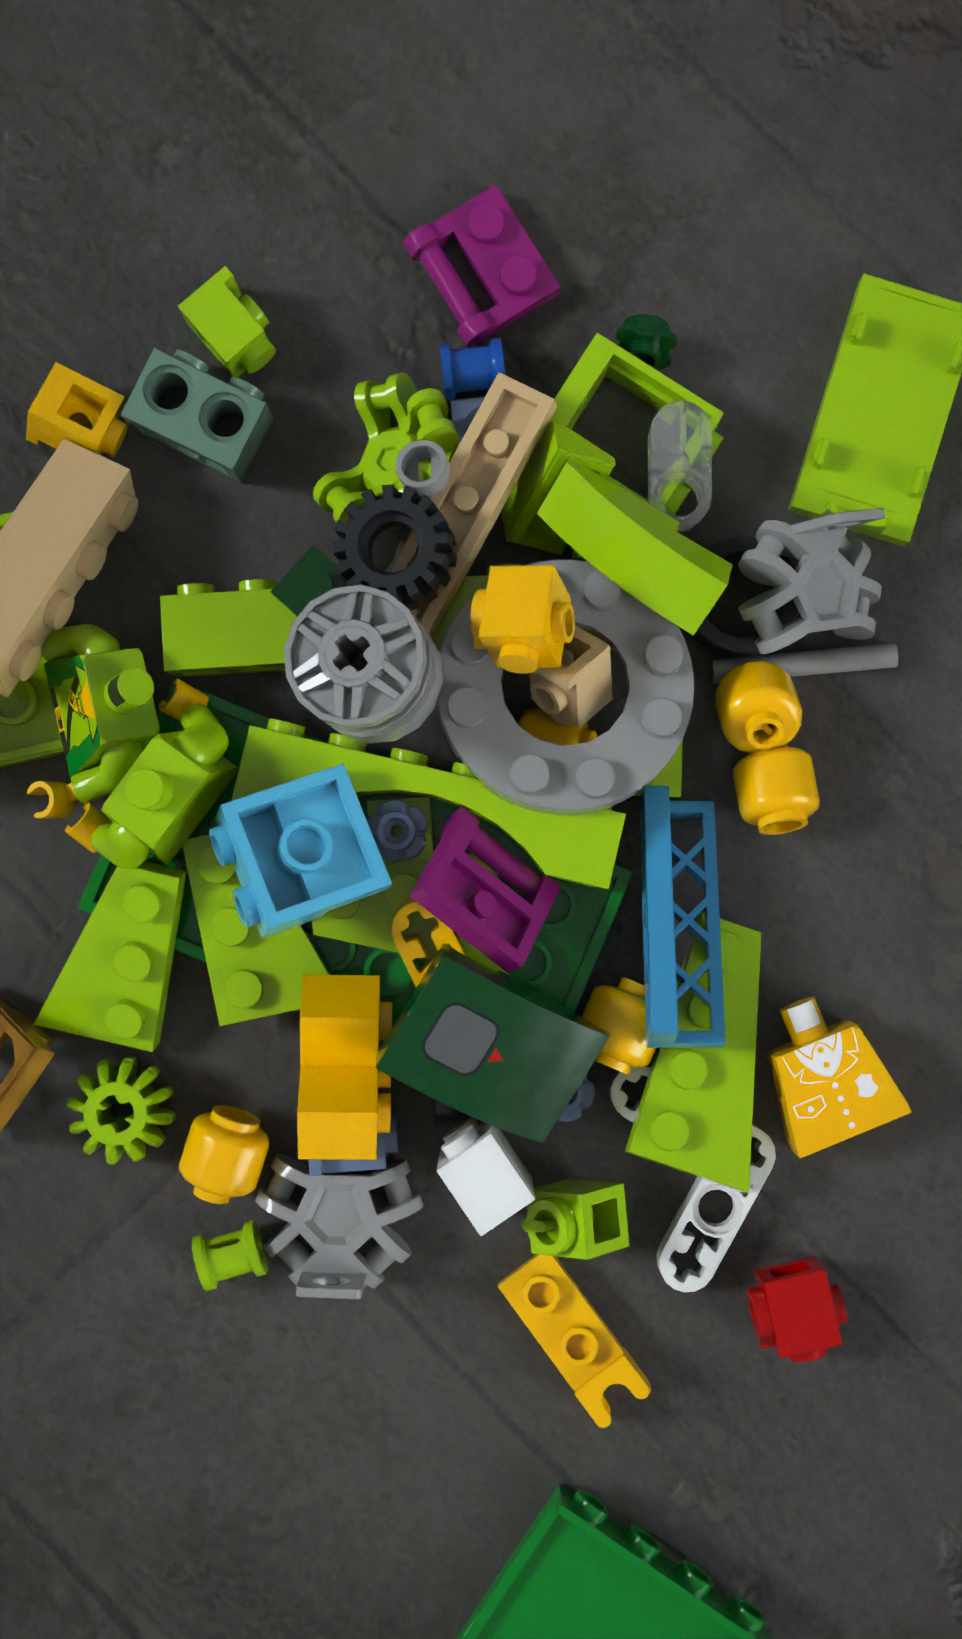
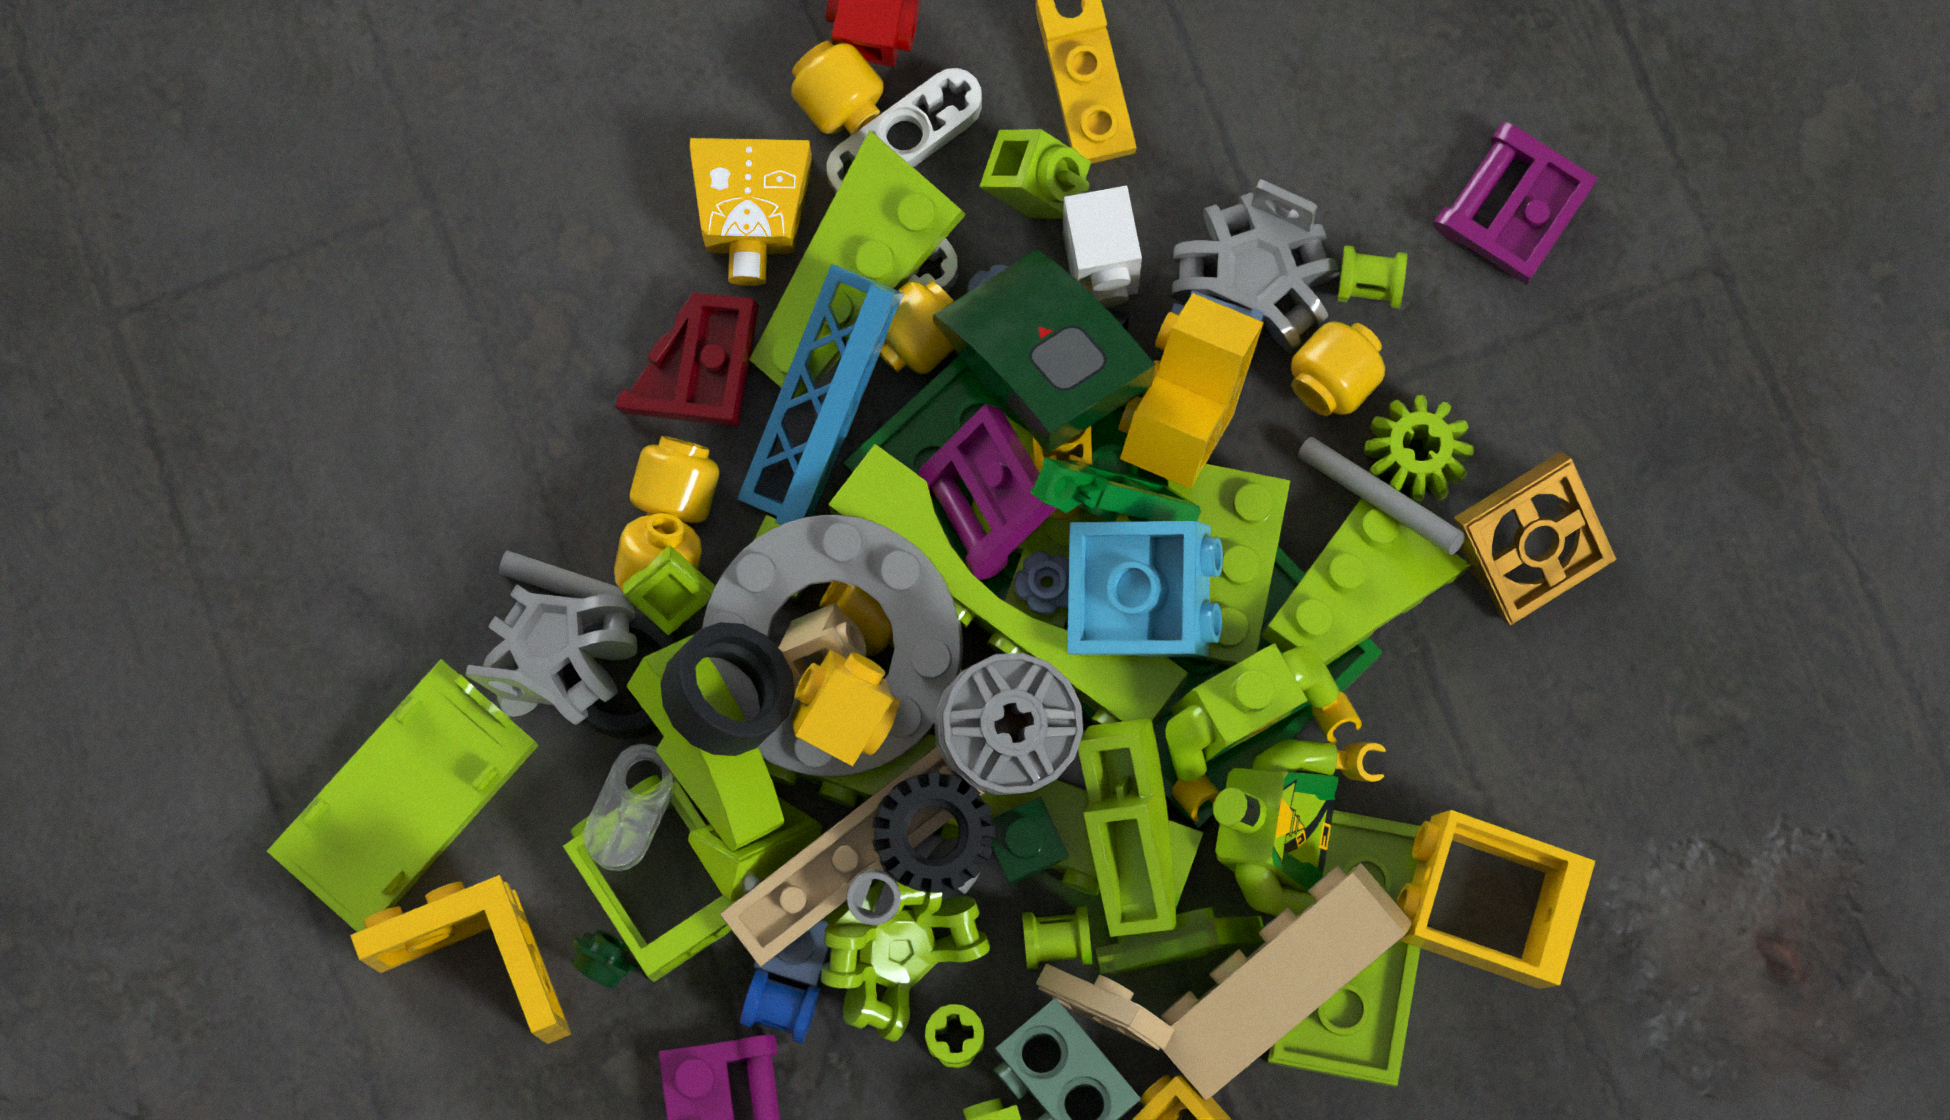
camera: 160 degrees left, 10 degrees down
(108, 1379) = (1532, 214): none -> magenta plate
(133, 1049) = (1381, 495): none -> light grey bar
(146, 567) = (1193, 937): none -> clear neon green wing
(185, 481) = (1105, 1004): none -> tan plate
(225, 639) = (1129, 826): none -> lime slope
(258, 532) = (1057, 937): none -> lime bush
(321, 394) = (938, 1025): none -> lime bush
(365, 933) = (1110, 493): none -> green hinge
(605, 625) = (697, 718): none -> black tyre
(730, 312) = (460, 914): none -> yellow bracket
(735, 677) = (669, 590): none -> lime tile
(797, 1222) = (836, 88): none -> yellow head
(804, 909) = (699, 365): none -> dark red wing

